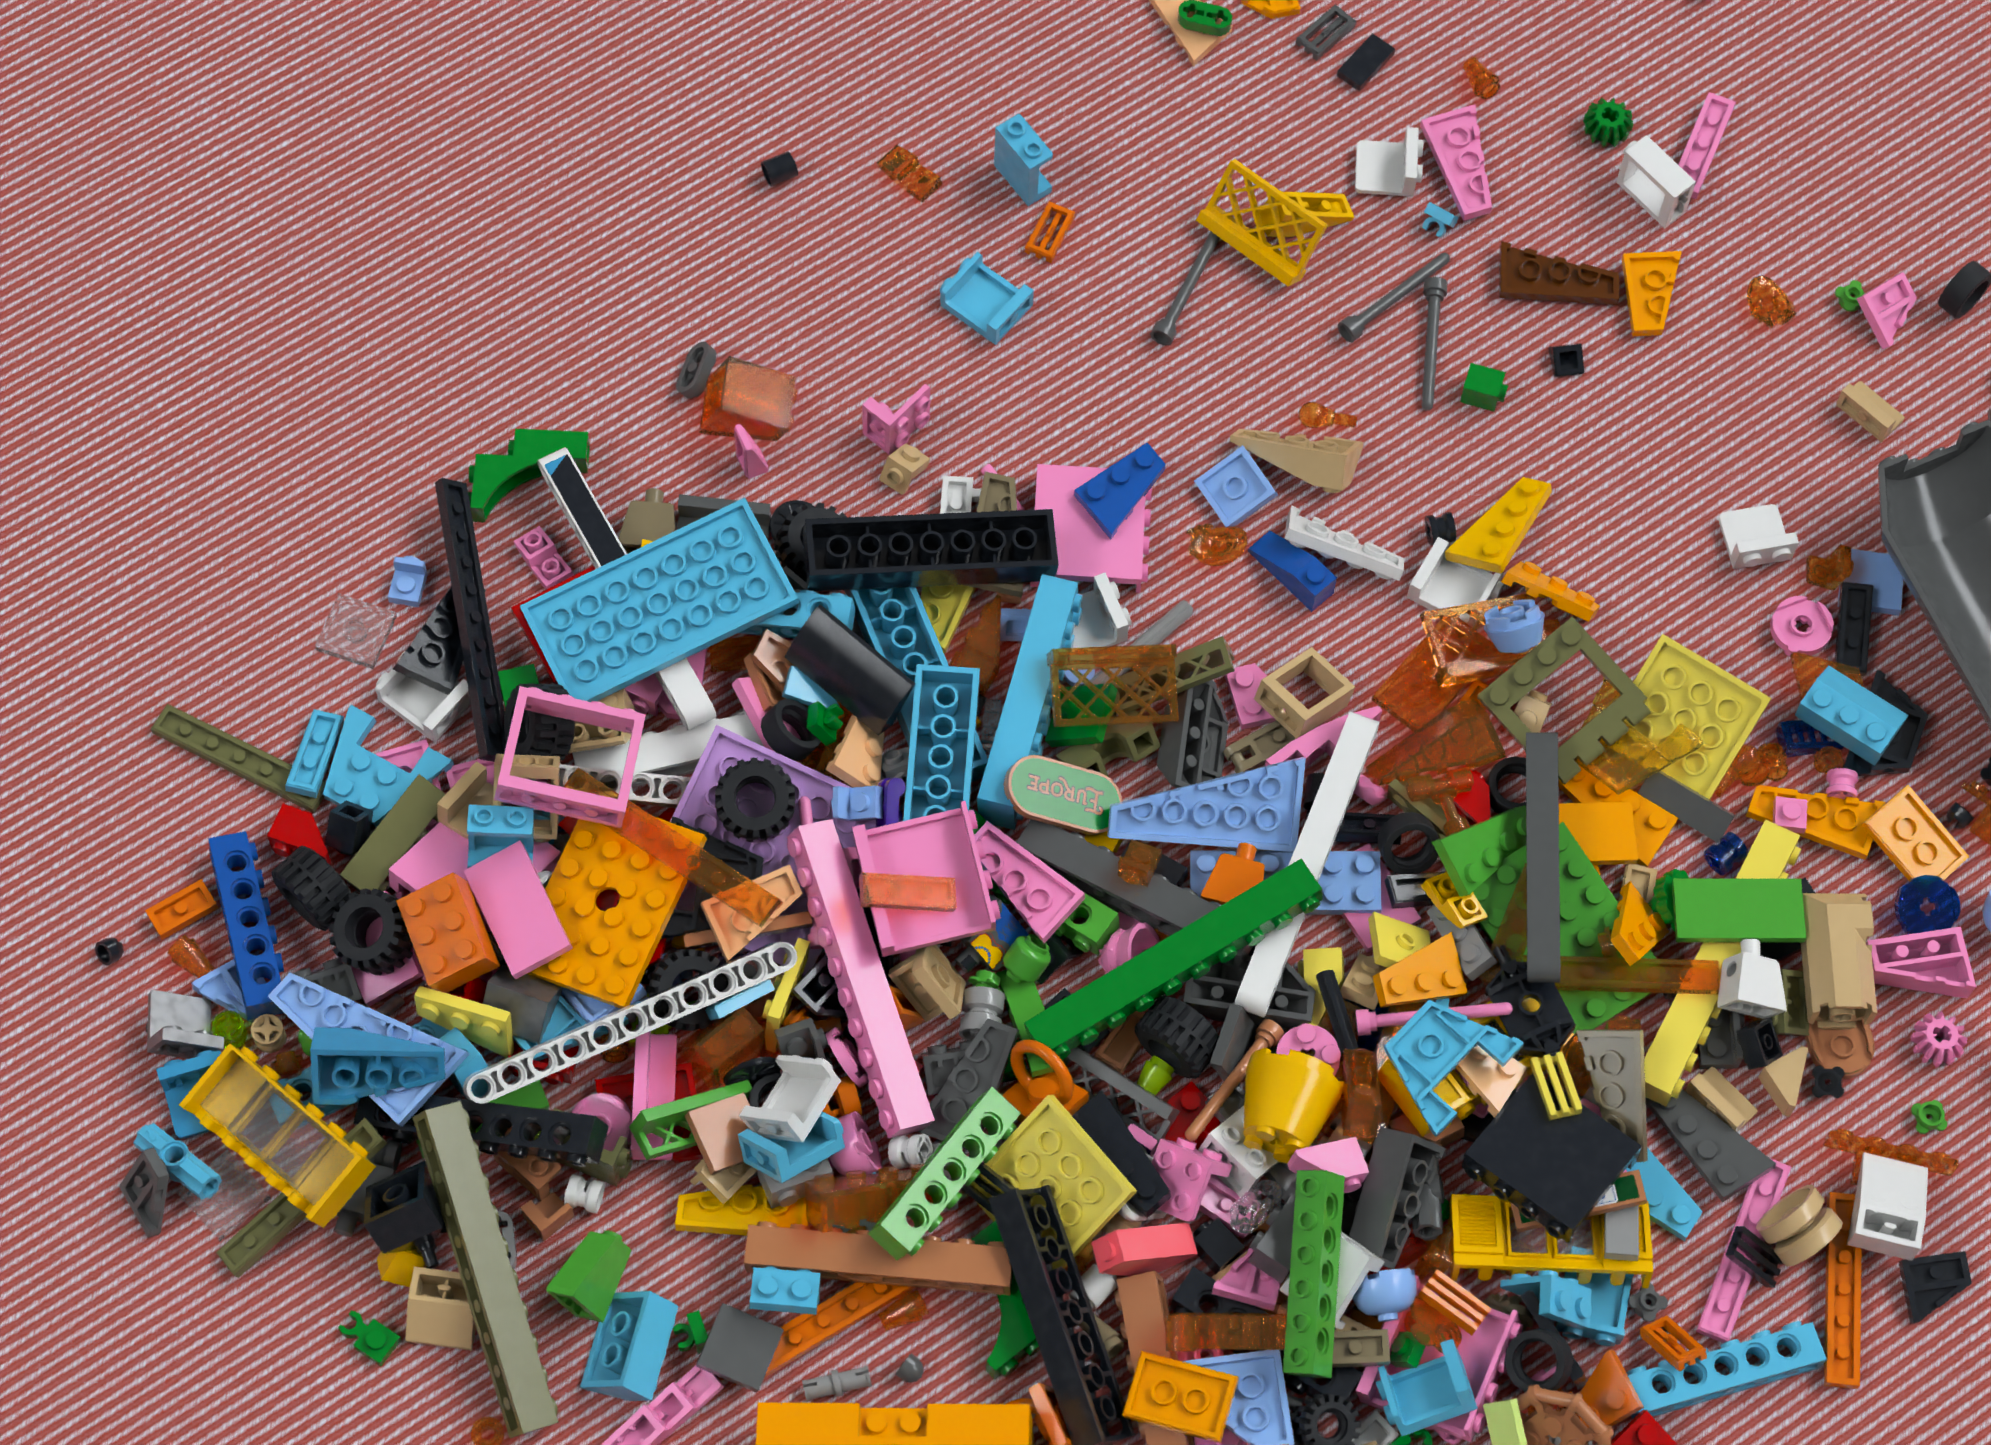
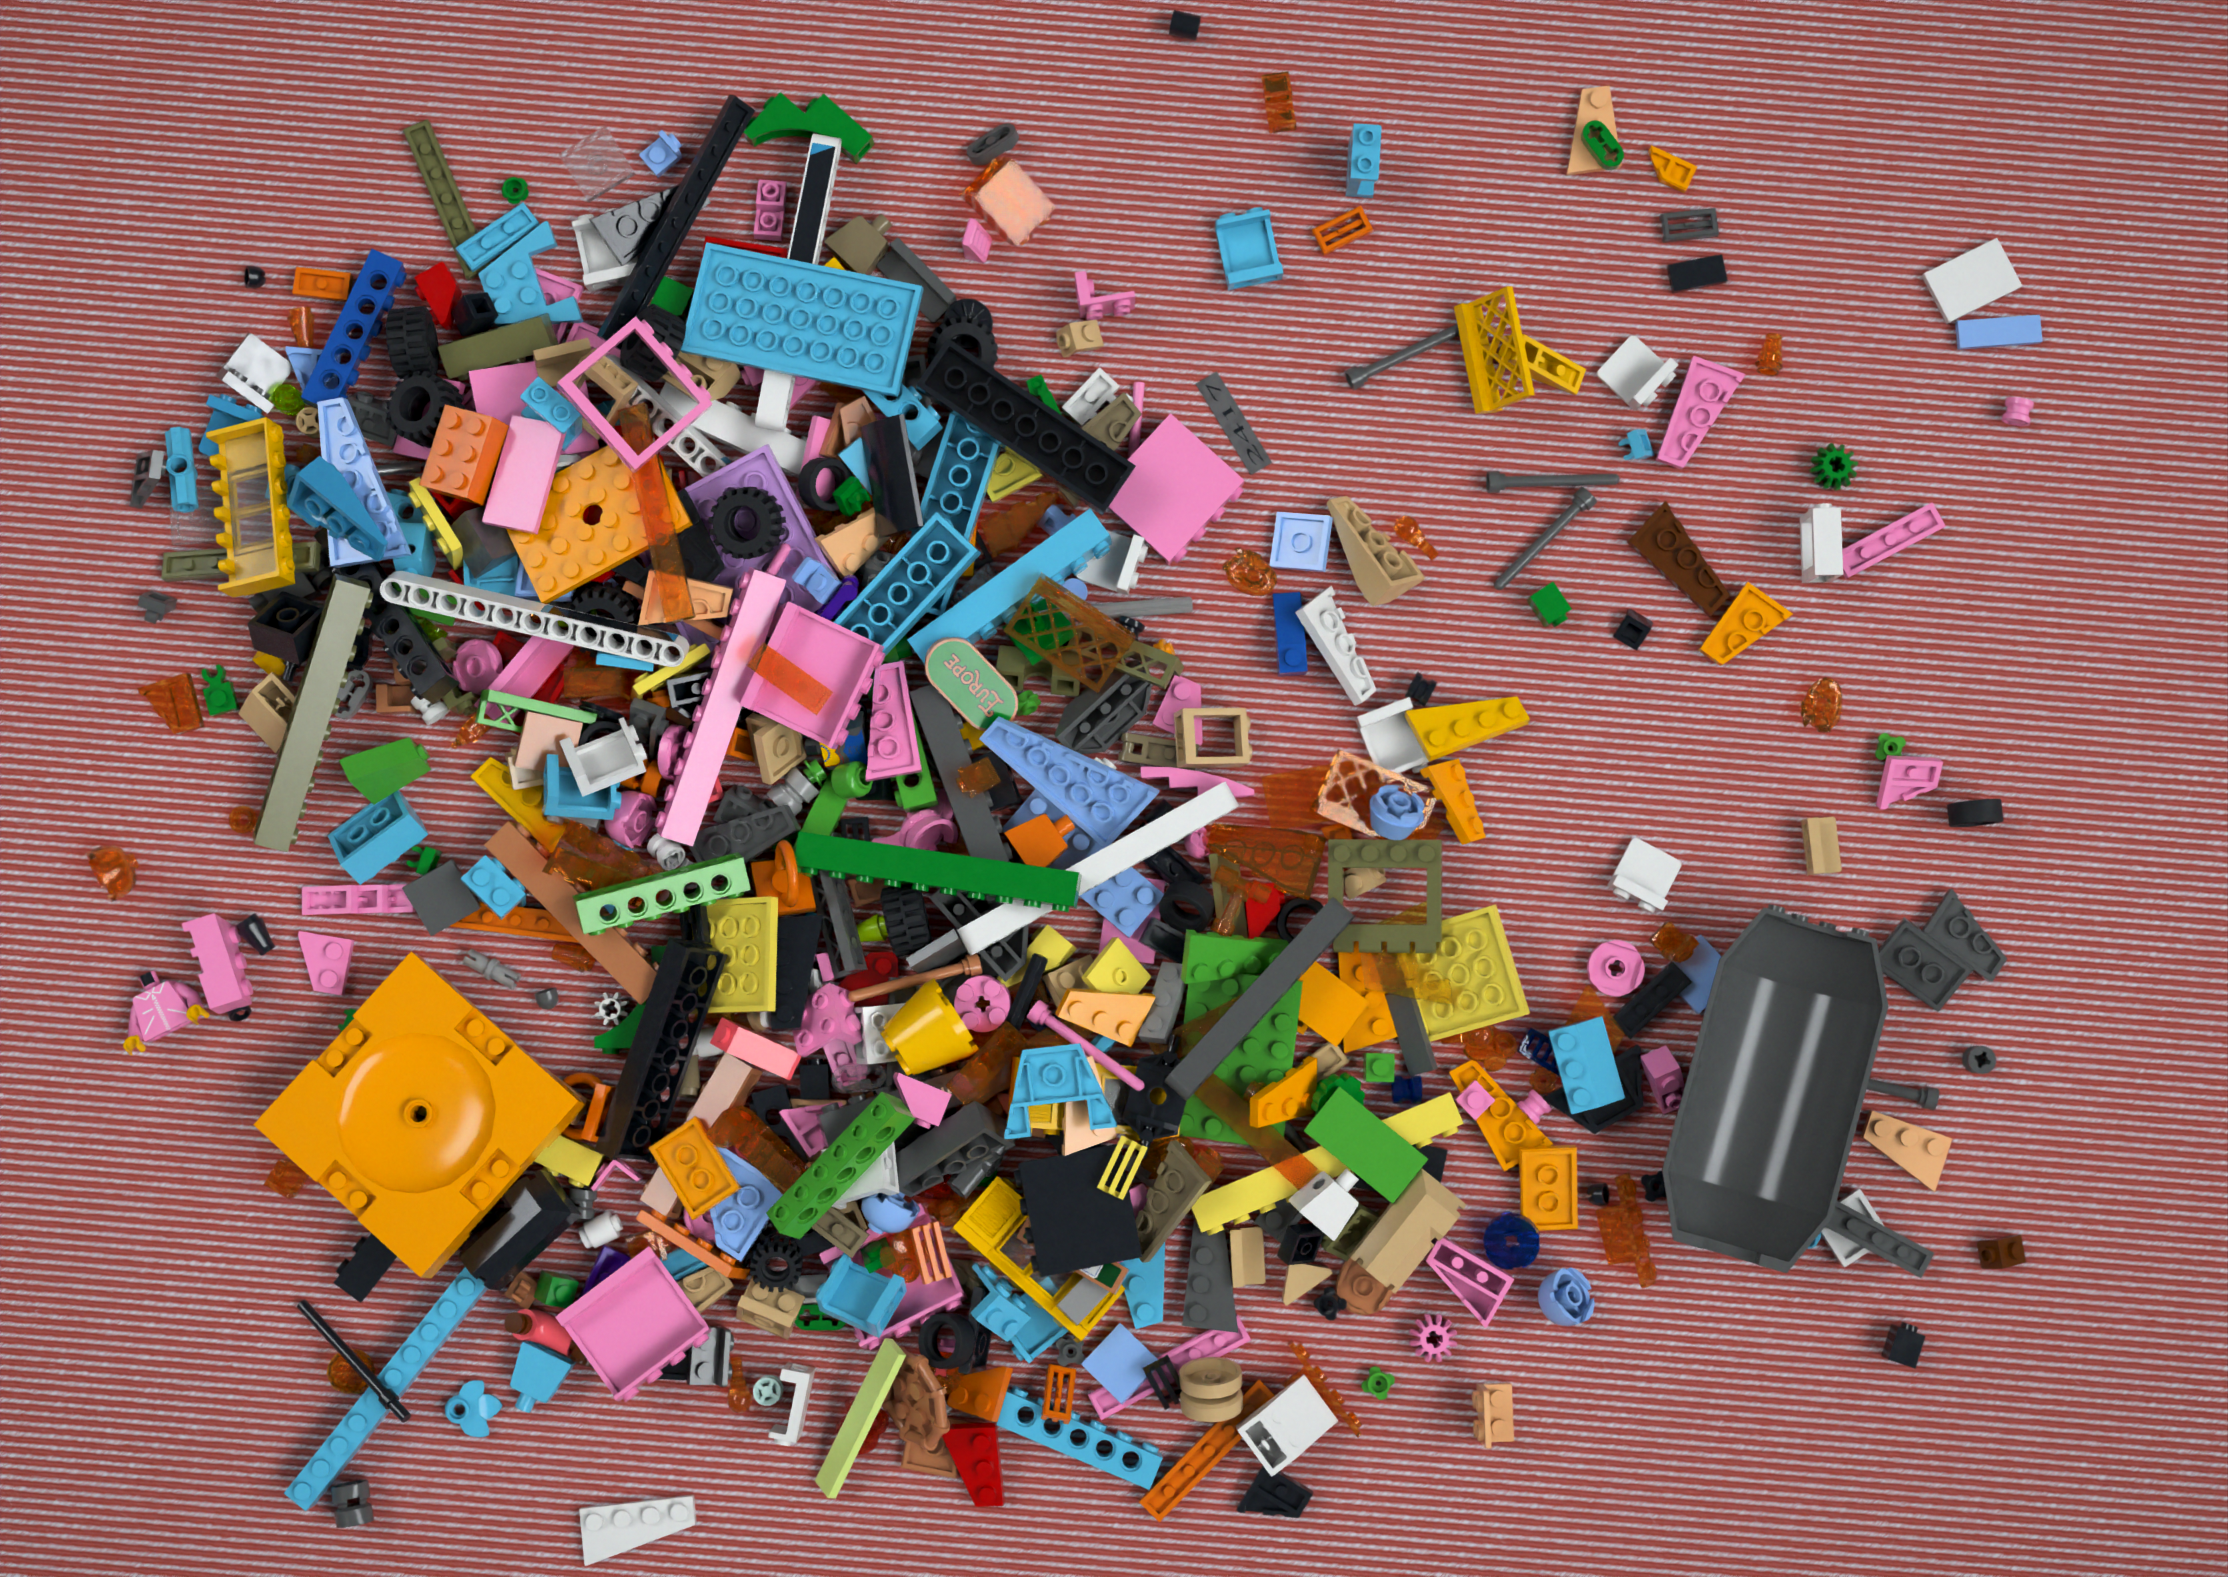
camera: 40 degrees right, 20 degrees up
(247, 1301) = (156, 605): none -> dark grey tile
(297, 697) = (512, 183): none -> green plate
(335, 1377) = (175, 702): none -> clear orange wing
(641, 1184) = (471, 732): none -> clear orange piece
(891, 741) = (895, 543): none -> clear orange plate
(972, 1335) = (605, 1012): none -> white gear
(1083, 438) = (1233, 423): none -> flat silver sticker
(1120, 487) = (1212, 479): blue wing -> none
(1124, 784) = (1027, 703): none -> bright green plate
(1459, 910) = (1173, 987): yellow slope -> none
(1687, 851) = (1378, 1067): none -> bright green brick
(1700, 1276) = (1119, 1363): none -> light blue tile
(1924, 680) = (1664, 1078): none -> bright pink slope

